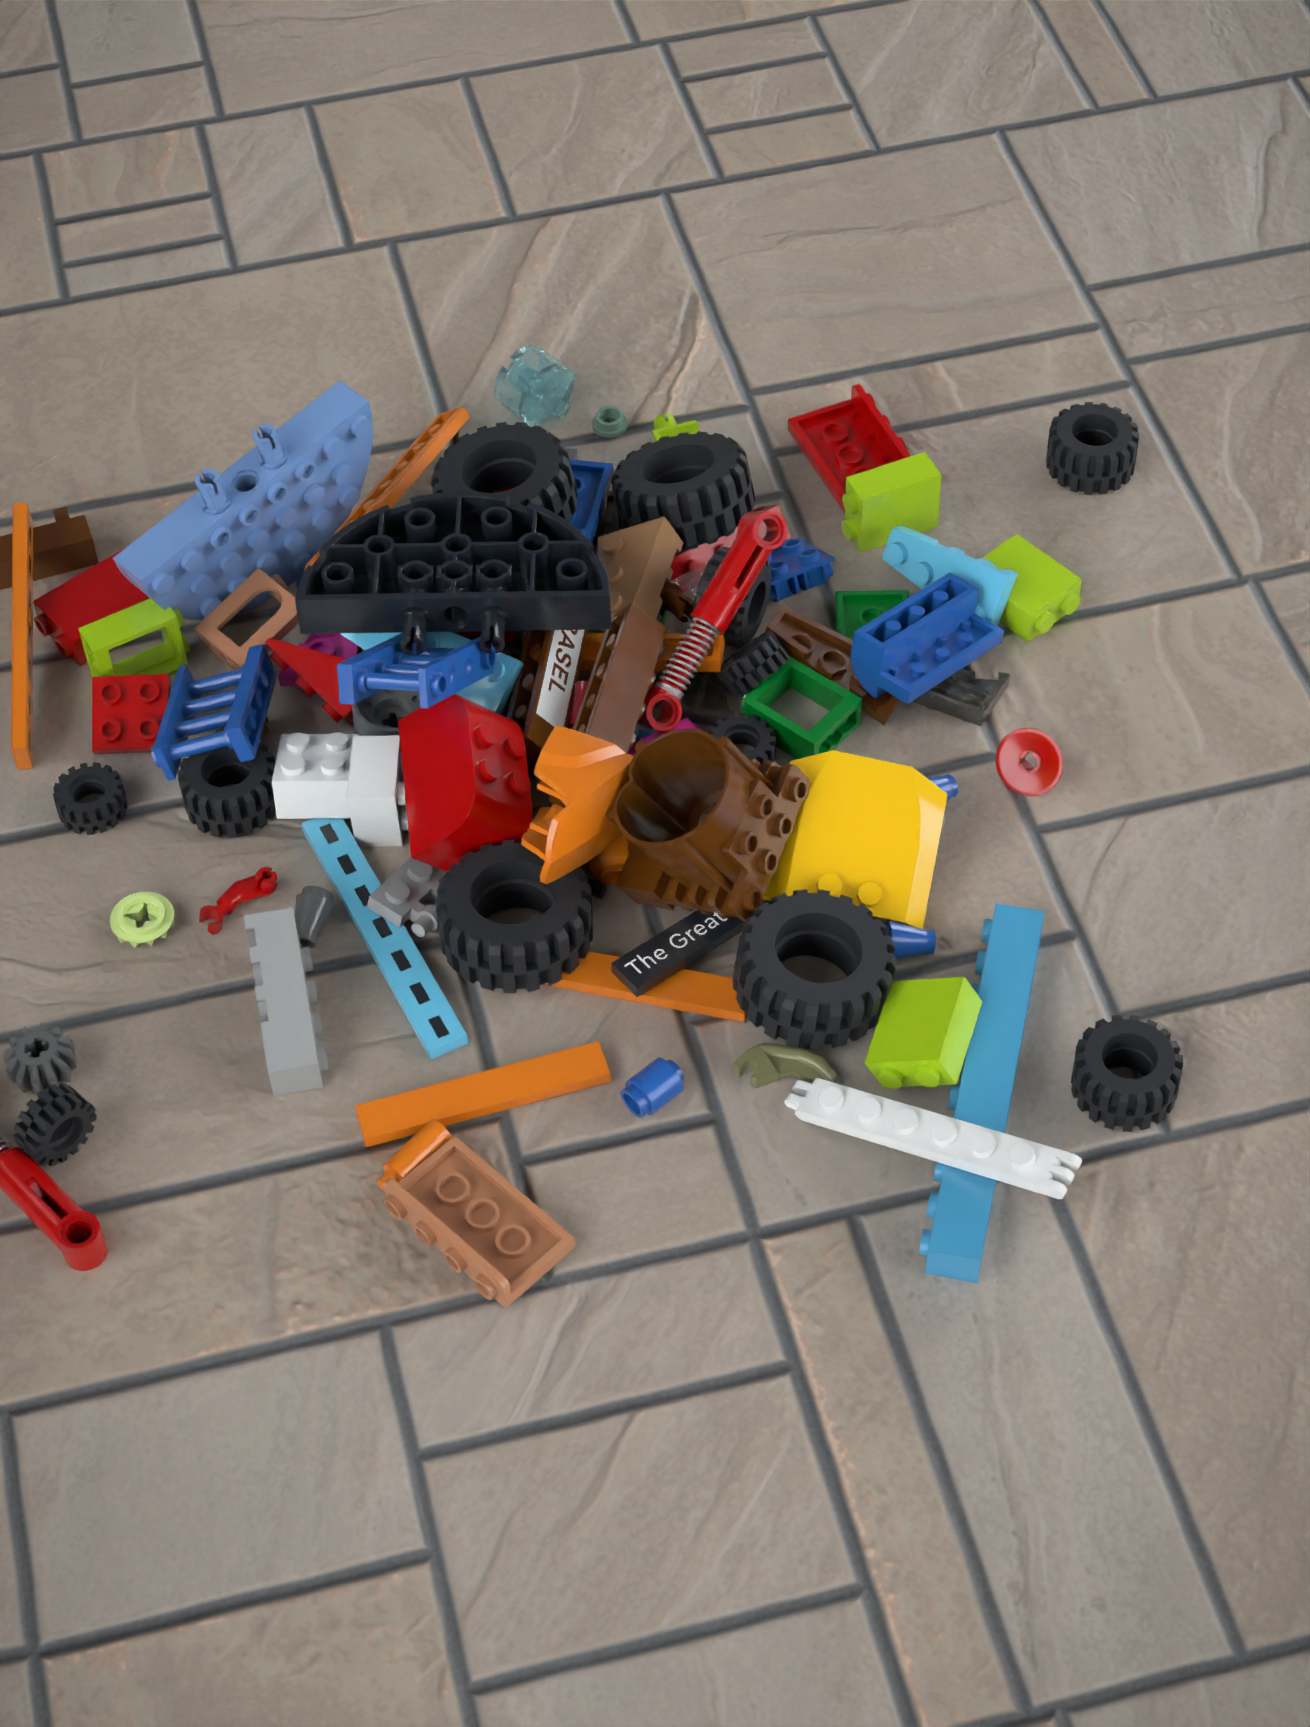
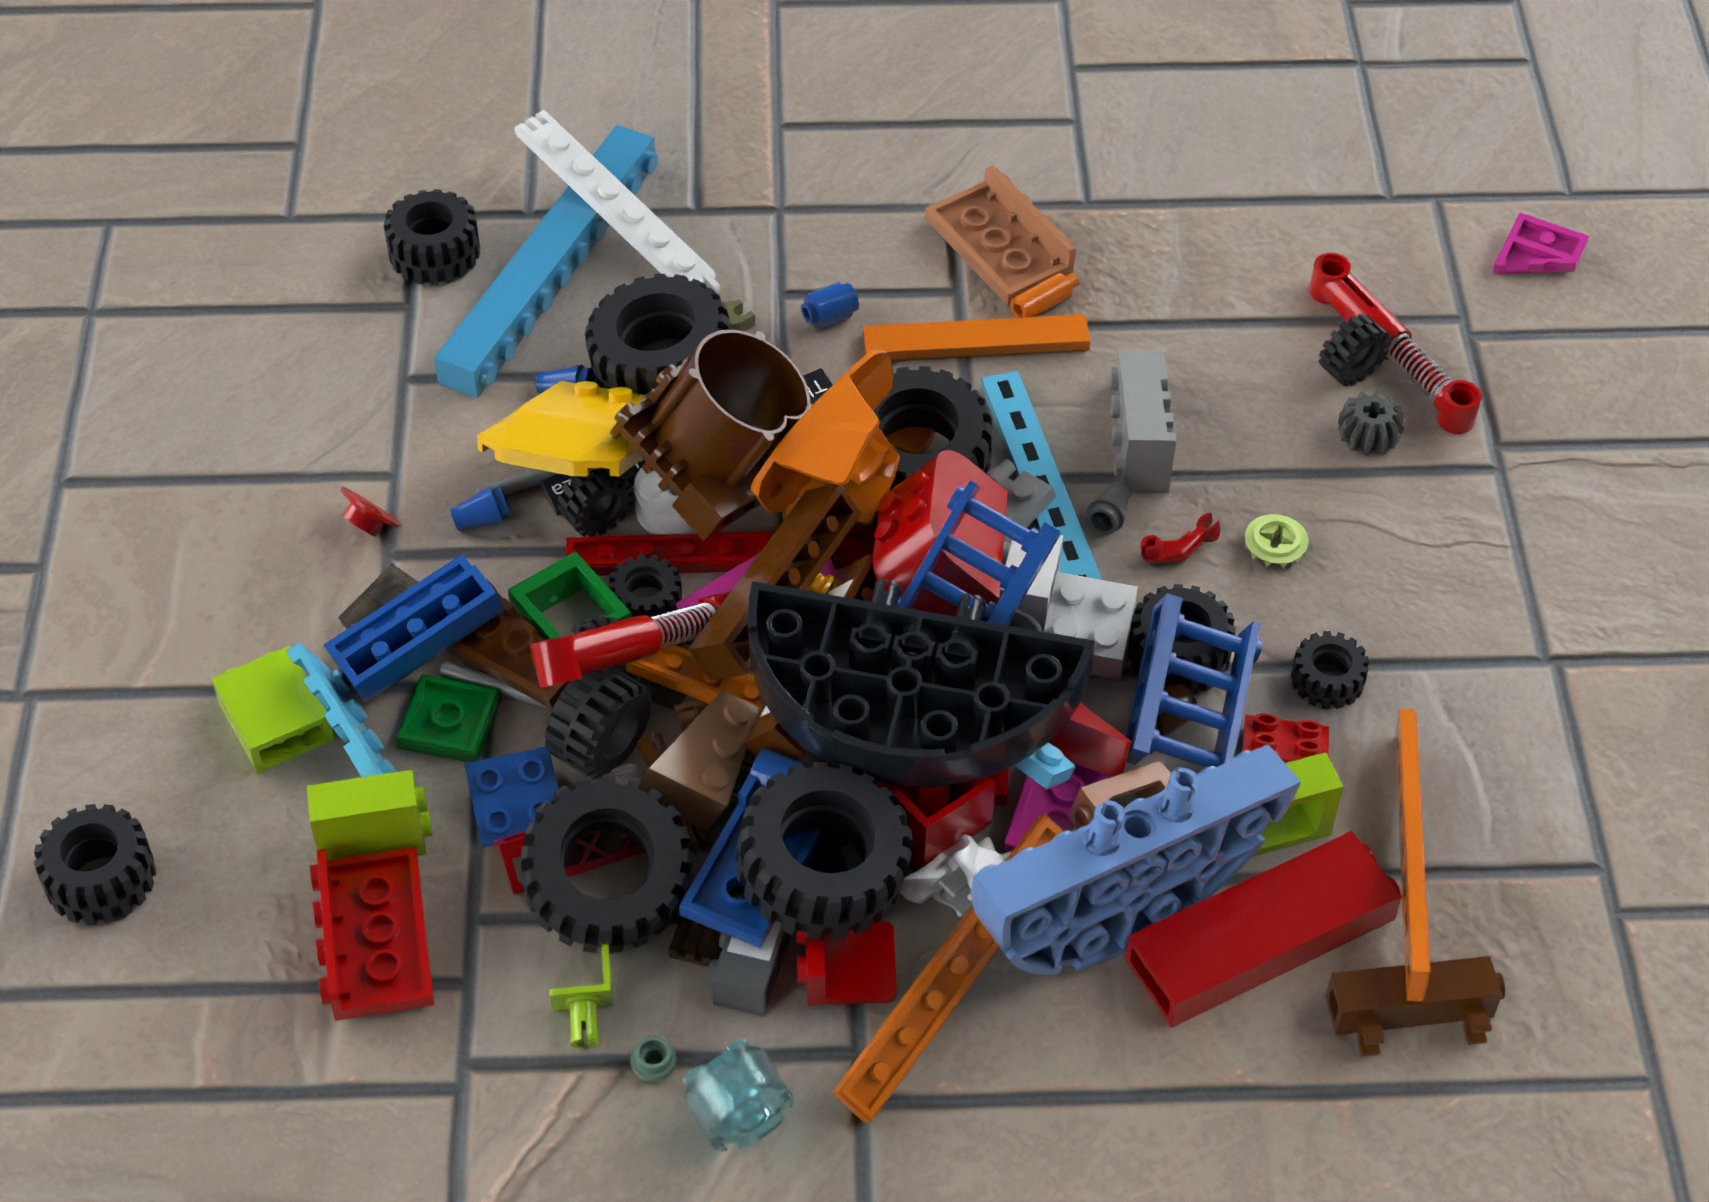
camera: 170 degrees left, 0 degrees up
(923, 1032) = (581, 278): lime brick -> none

